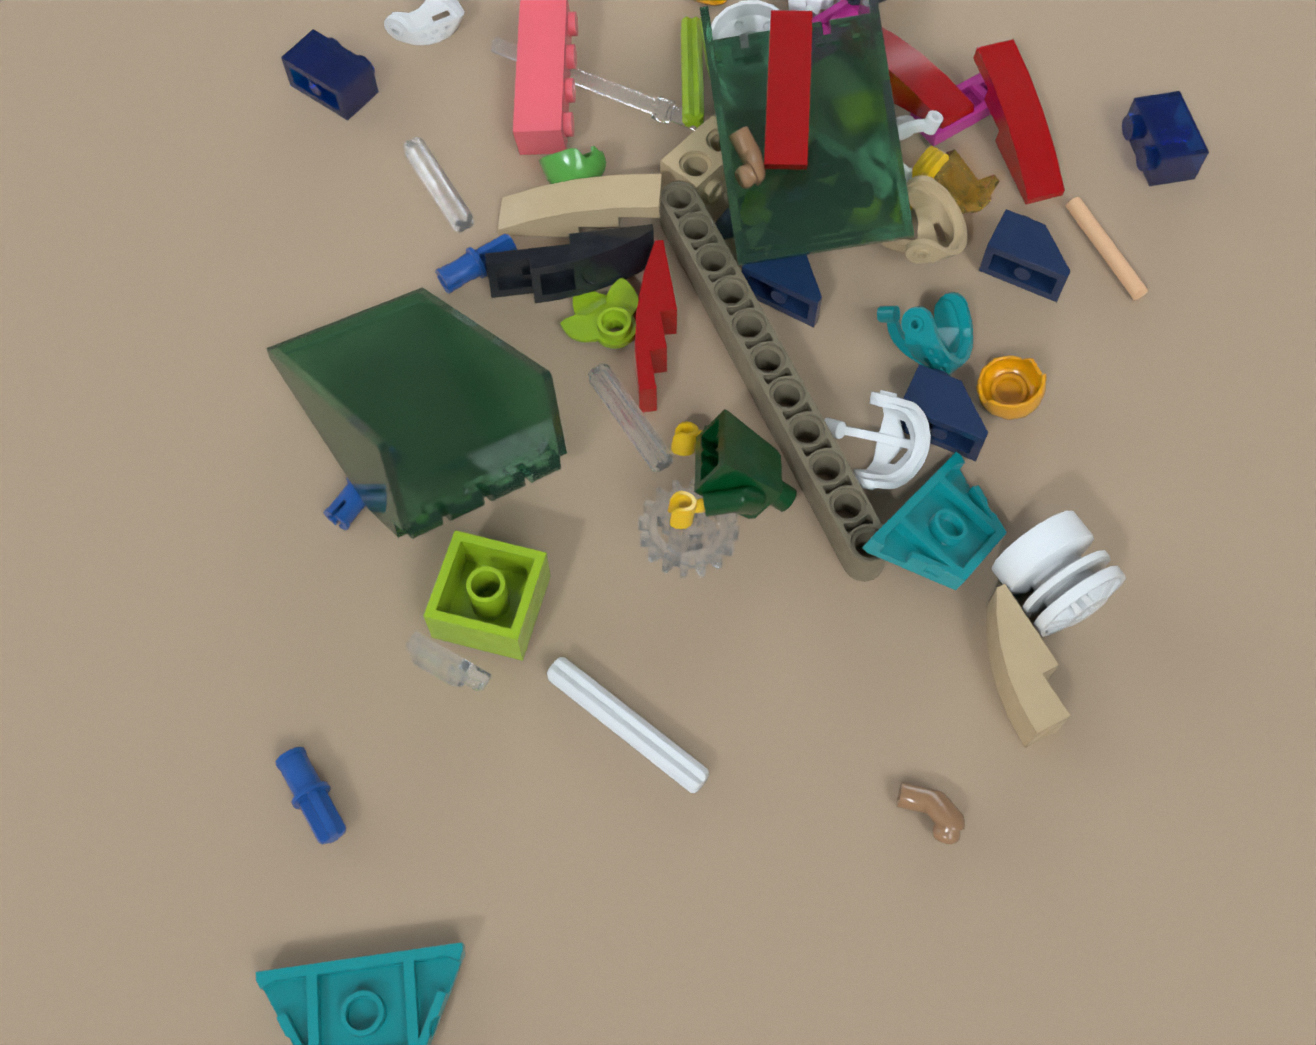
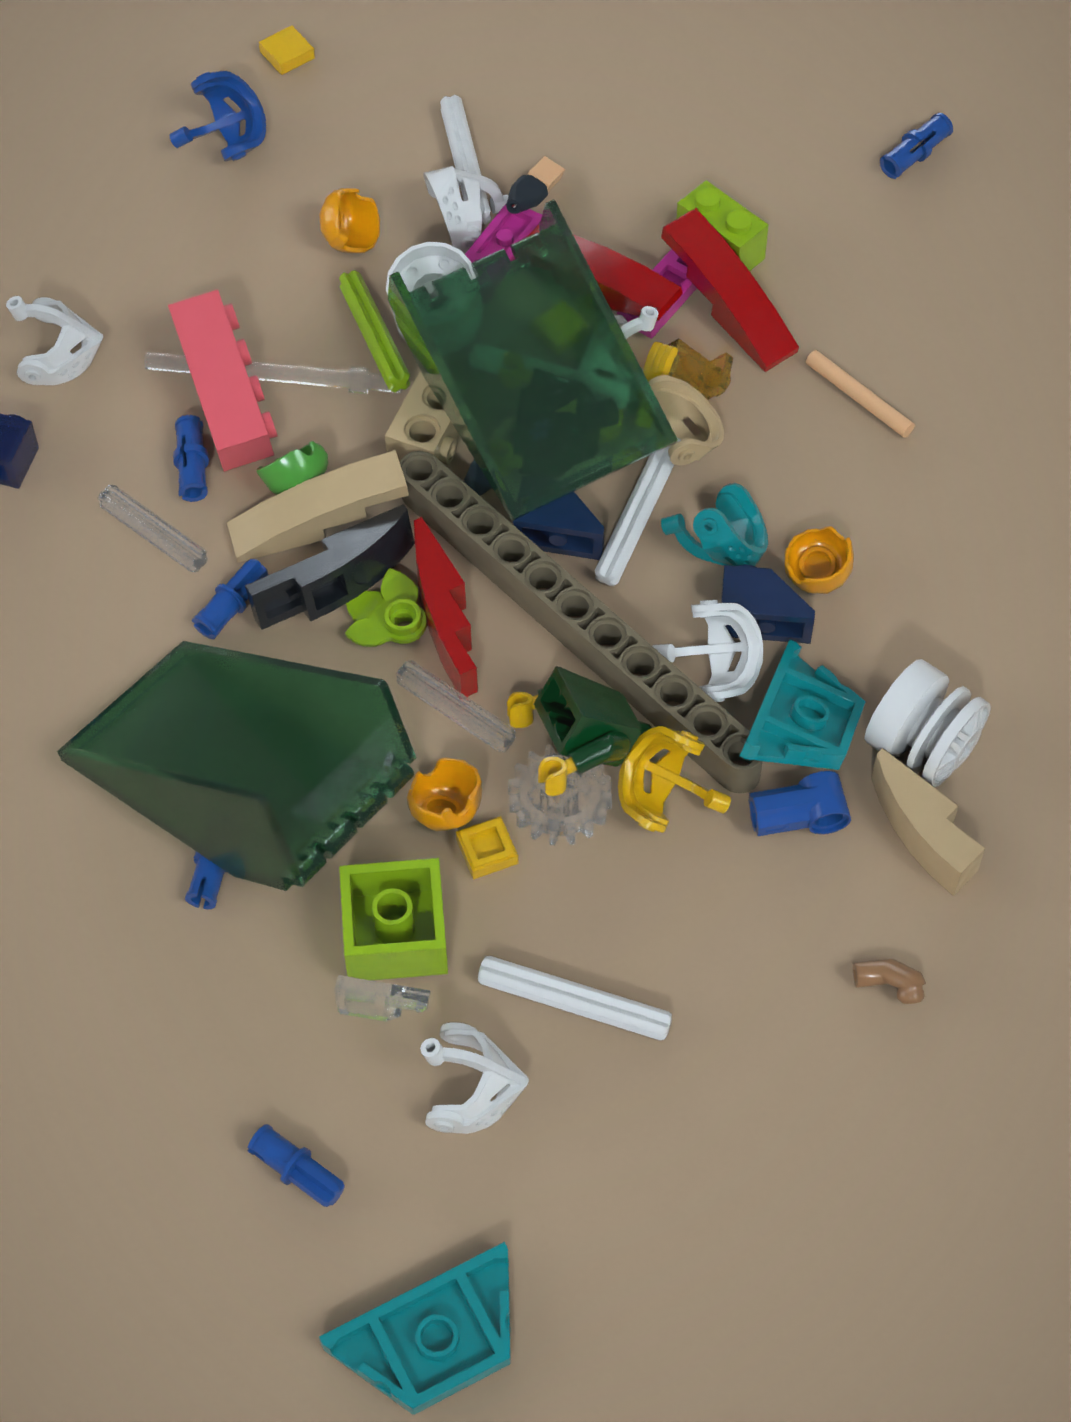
camera: 20 degrees left, 5 degrees down
(493, 135) = (191, 458): none -> blue pin
(521, 773) = (498, 1077): none -> white helmet
(584, 496) = (446, 795): none -> light orange hair
(605, 555) = (487, 847): none -> yellow tile
(750, 154) = (482, 405): medium nougat arm -> none
(763, 566) = (665, 774): none -> yellow helmet
(788, 90) = (497, 328): red slope -> none
(856, 296) = (634, 518): none -> white axle
(919, 613) = (812, 804): none -> blue piece
(1025, 256) = (786, 426): dark blue slope -> none
(1045, 64) = (735, 223): none -> lime brick
(1164, 138) = (877, 266): clear blue brick -> none
(1257, 37) = (902, 158): none -> blue pin

